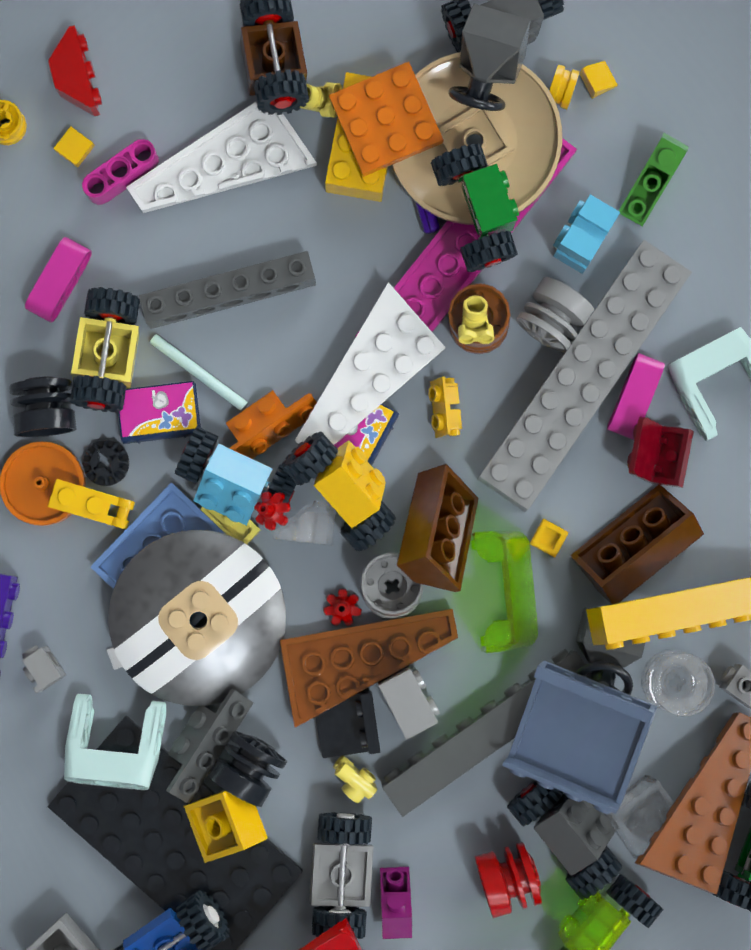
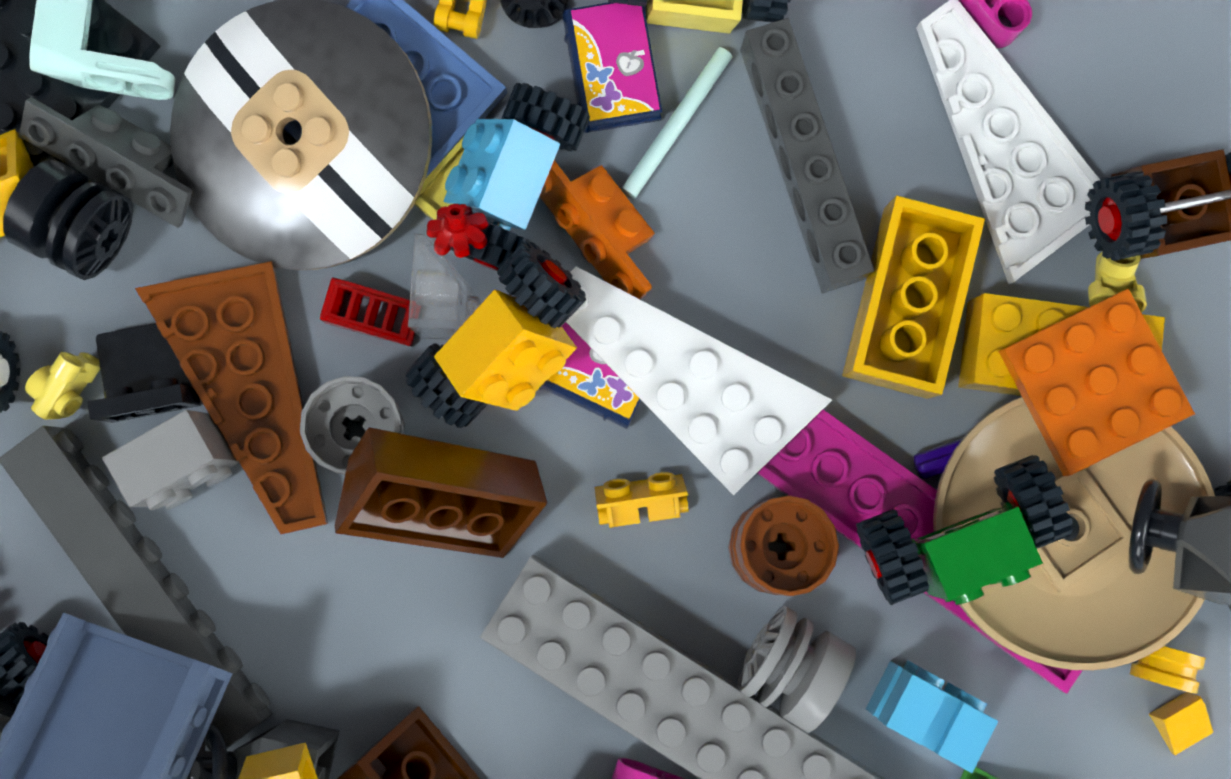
camera: 85 degrees right, 0 degrees up
(311, 600) = (334, 301): none -> red slope
(324, 227) = (913, 298): none -> yellow brick
(345, 601) = (333, 356): red plant -> none
(475, 322) = (774, 540): light yellow plate -> none
(514, 553) = (293, 625): clear neon green windscreen -> none
(548, 538) = (444, 671): yellow tile -> none

